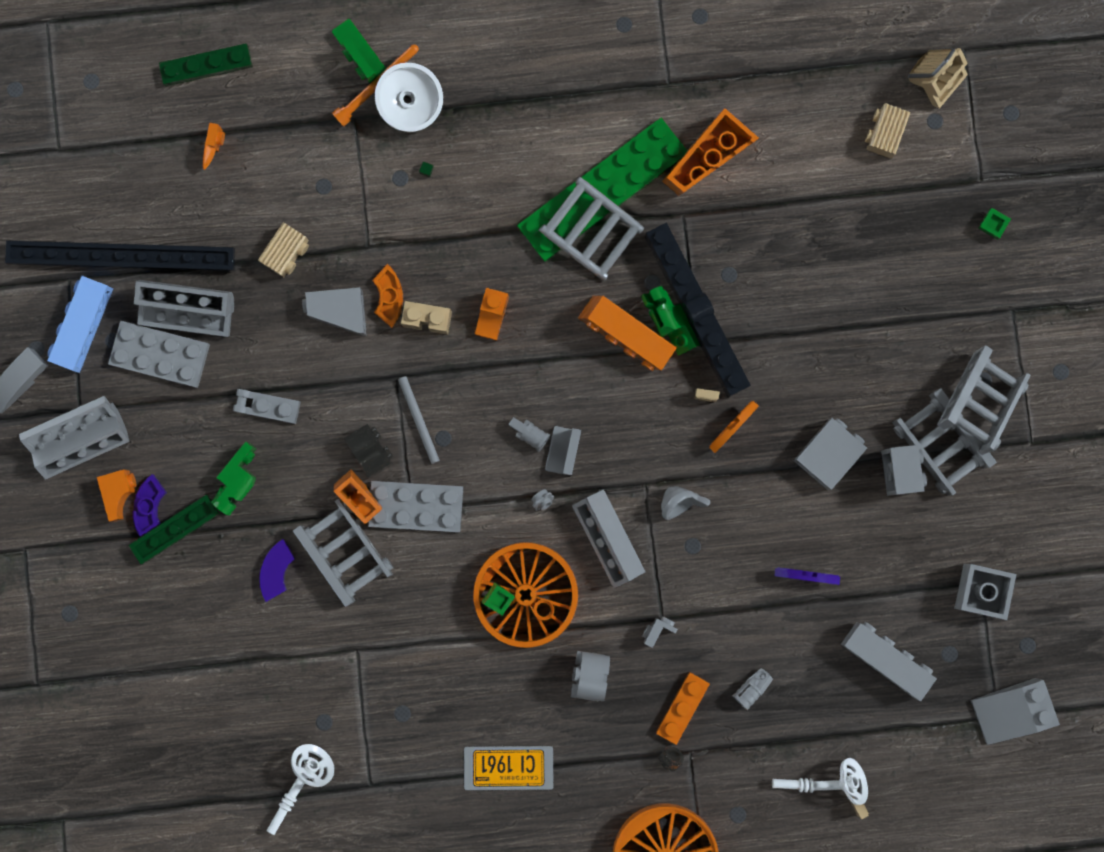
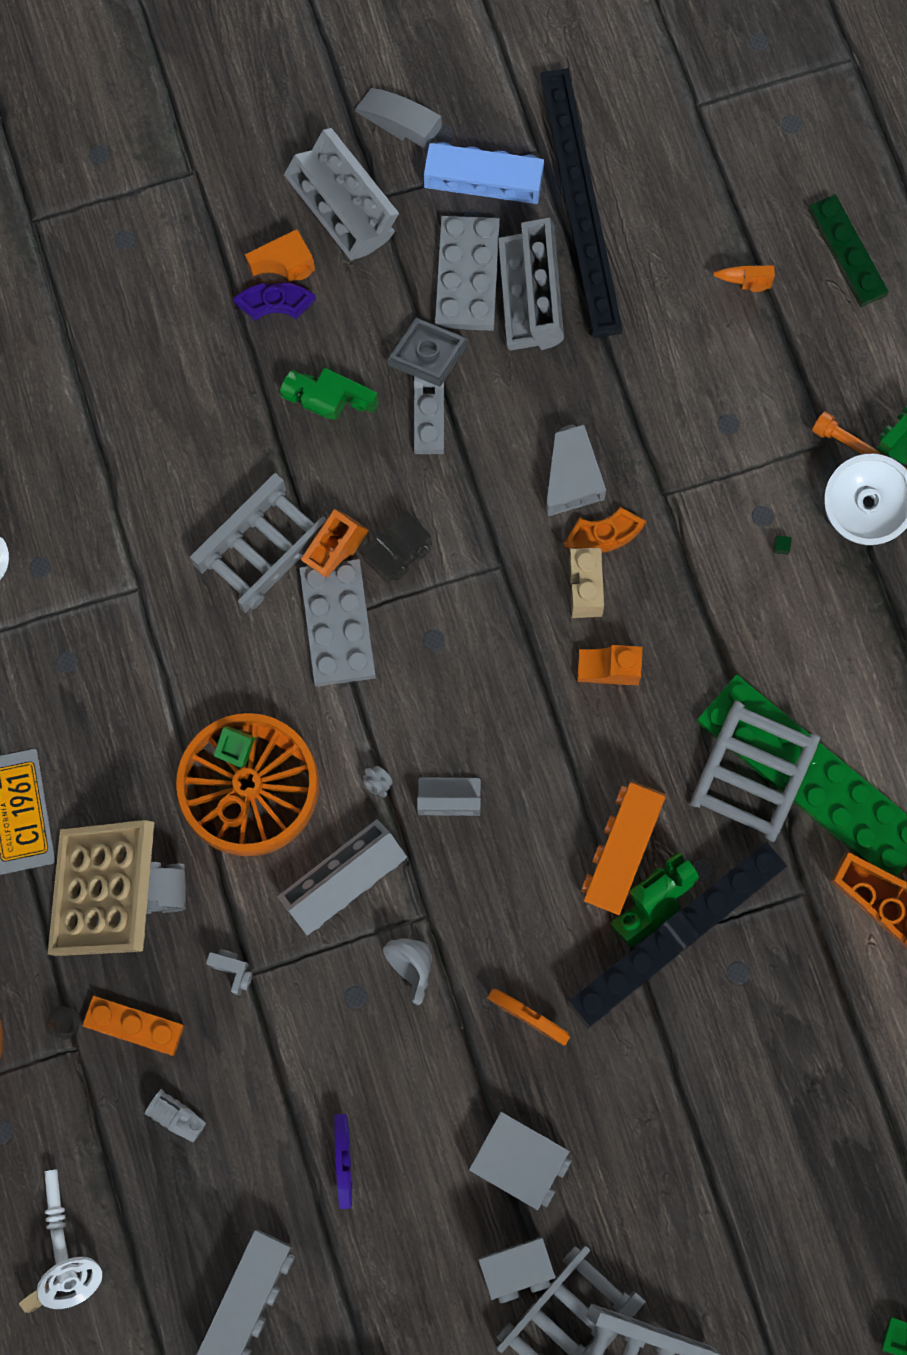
camera: 80 degrees right, 10 degrees down
(174, 529) = (250, 335): dark green plate -> none
(218, 397) = (428, 352): none -> dark grey tile
(274, 569) = (222, 465): dark purple tile -> none
(284, 250) = (633, 390): tan brick -> none
(418, 419) = (451, 602): light grey bar -> none
(529, 433) = (462, 747): light grey hinge -> none
(576, 703) = (131, 903): none -> tan piece
(706, 395) = (564, 971): tan tile -> none

